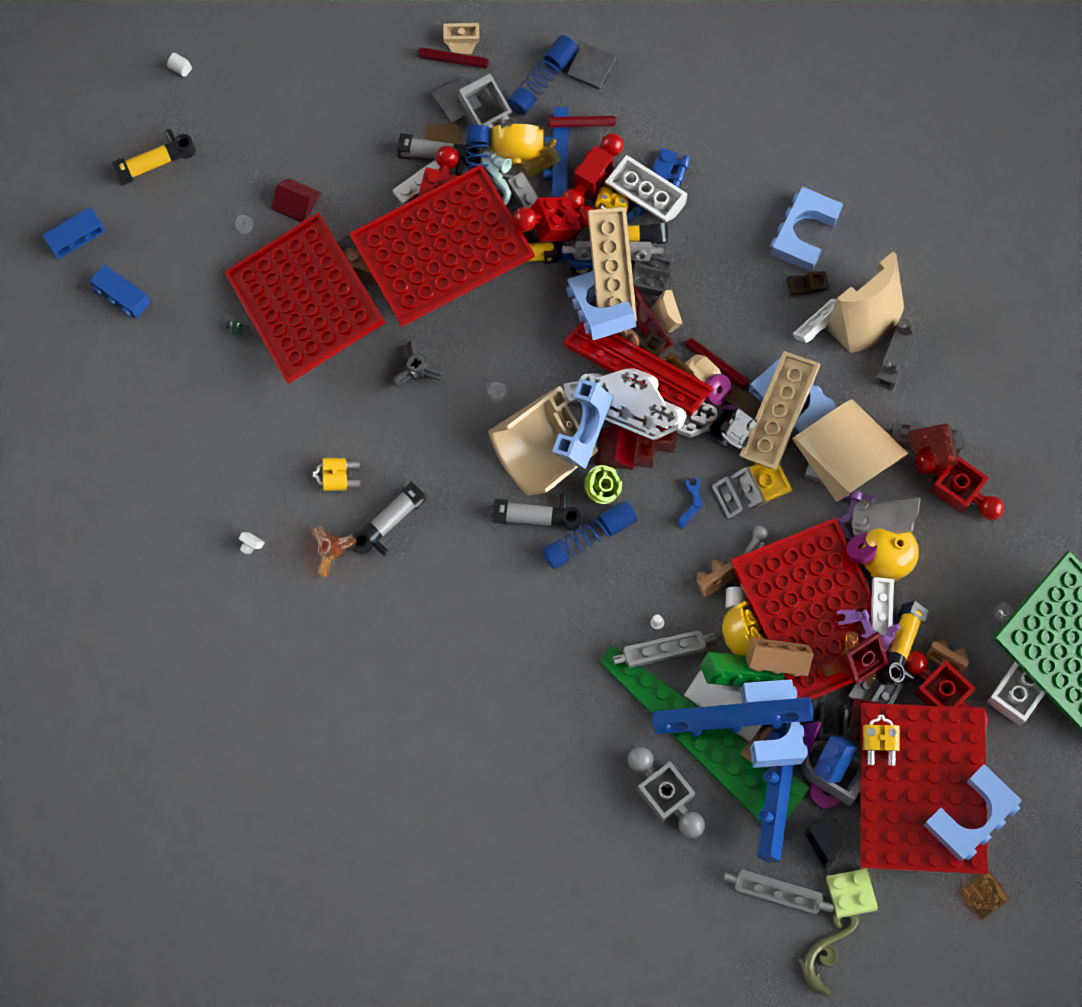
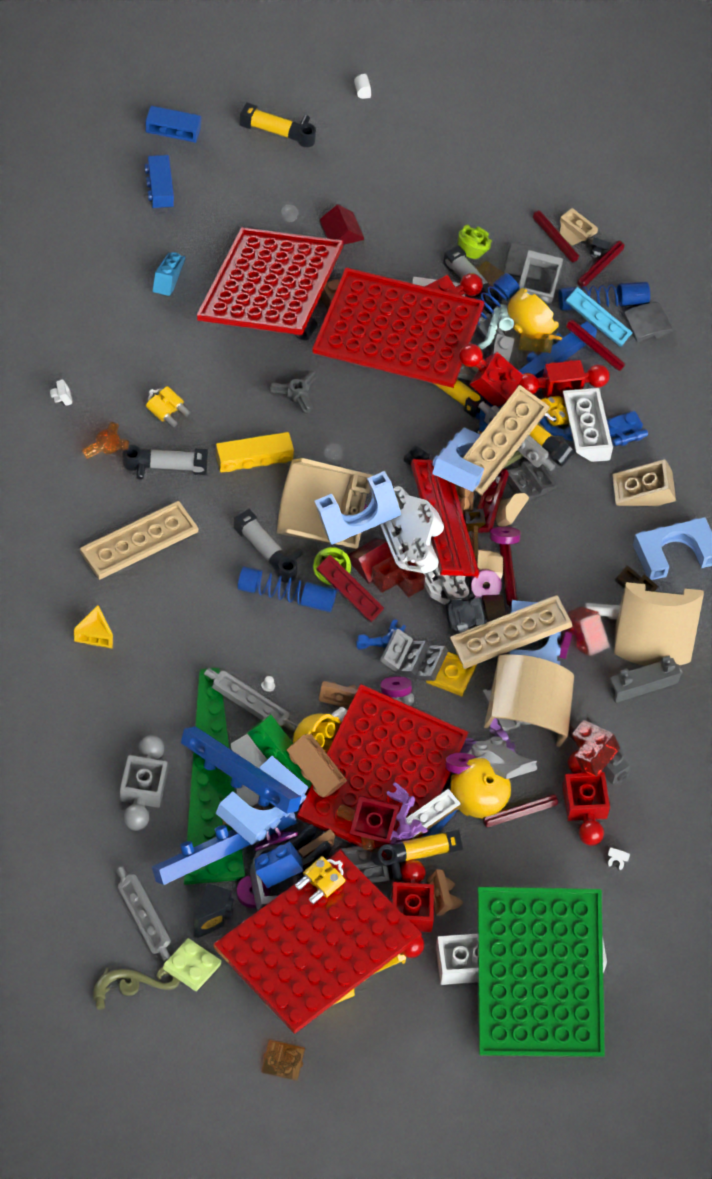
camera: 40 degrees right, 15 degrees down
(214, 363) = (168, 273): none -> dark azure slope
(234, 327) = (207, 265): clear green plate -> none
(406, 118) = (474, 241): none -> lime cone
(441, 604) = (138, 540): none -> tan plate
(443, 447) = (254, 452): none -> yellow brick
(493, 39) = (597, 246): none -> black tile
(496, 710) = (94, 630): none -> yellow slope
(509, 50) = (600, 264): none -> dark red axle
(555, 335) = (416, 453): none -> black tile
(559, 96) = (598, 317): none -> medium azure tile
(634, 490) = (350, 588): none -> dark red plate
(686, 336) = (505, 535): none -> magenta piece
(713, 503) = (396, 650): none -> light grey plate
(732, 201) = (645, 485): none -> tan slope
(753, 534) = (396, 687): none -> magenta piece
(820, 381) = (565, 645): none -> magenta tile
(824, 351) = (588, 630): none -> clear red brick
(833, 705) = (311, 847): none -> medium nougat plate
(927, 535) = (521, 810): none -> axle
(1000, 802) = (301, 989): light blue arch -> none
(1024, 504) = (618, 855): none -> white tile

